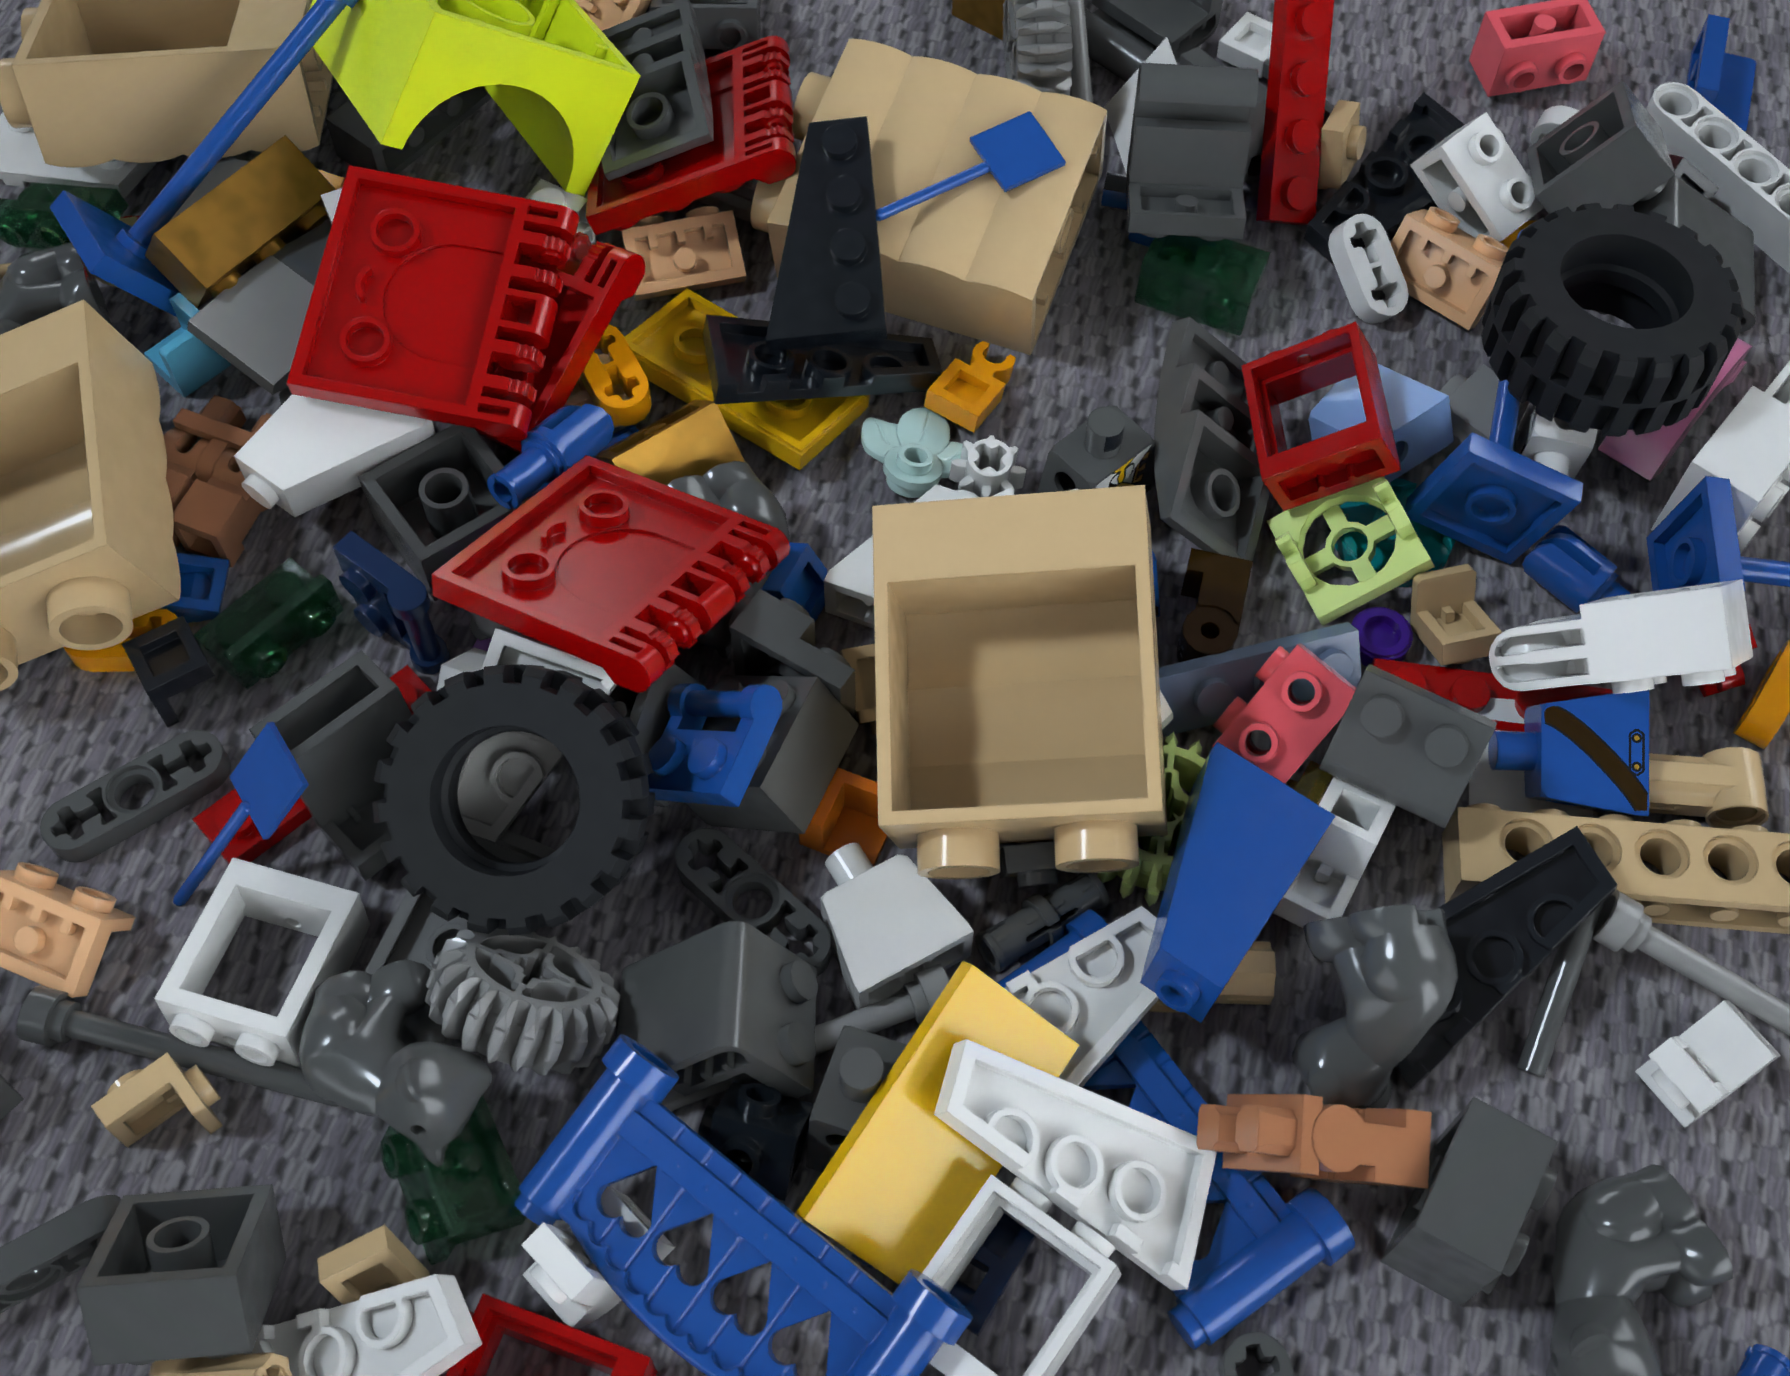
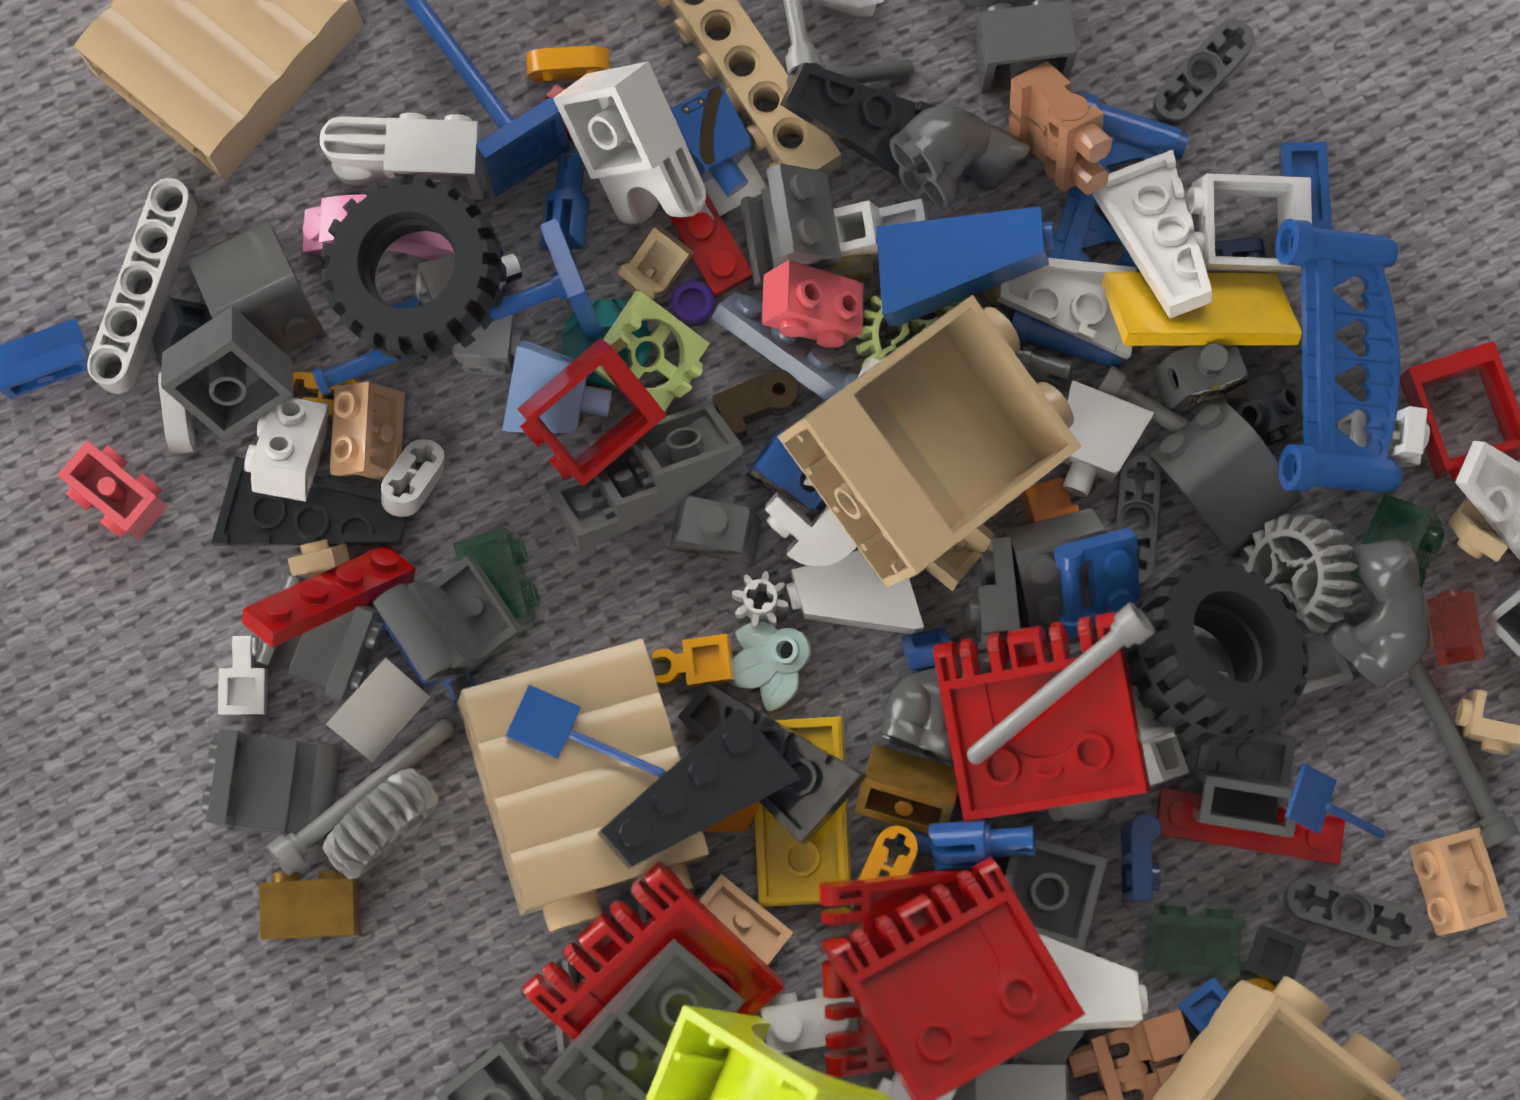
camera: 125 degrees left, 20 degrees up
(279, 899) = (1339, 756): white window -> none
(298, 1149) = (1455, 627): none -> clear red brick
(614, 655) = (1129, 628): none -> light grey piece
(1720, 786) = (667, 65): tan piece -> none

